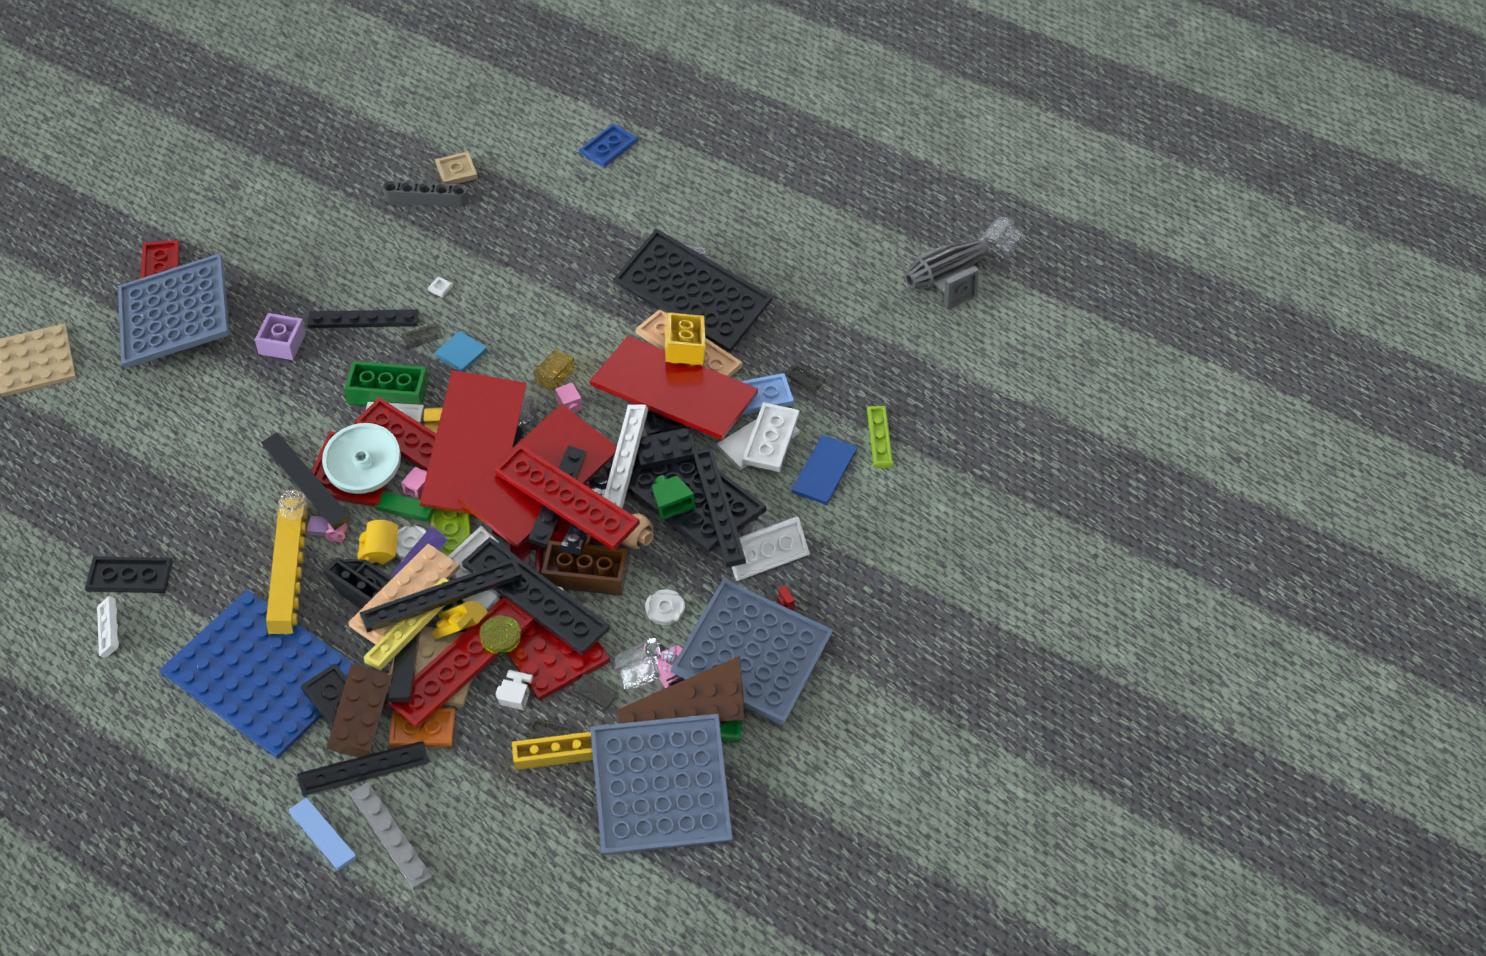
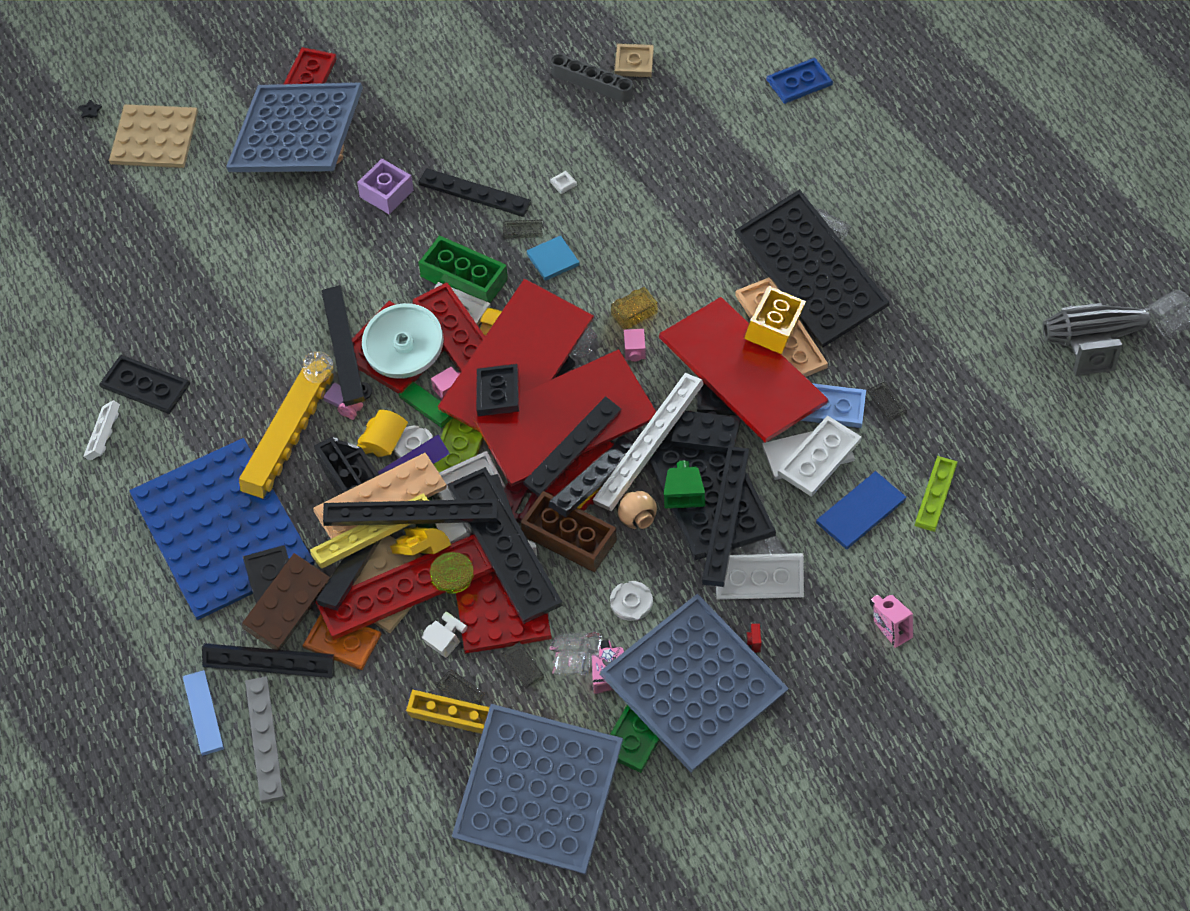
camera: 25 degrees right, 5 degrees up
(471, 469) = (497, 390): none -> black plate
(567, 497) = (577, 452): red plate -> none
(707, 693) = (619, 712): reddish brown wing -> none
(893, 544) = (890, 614): none -> bright pink torso

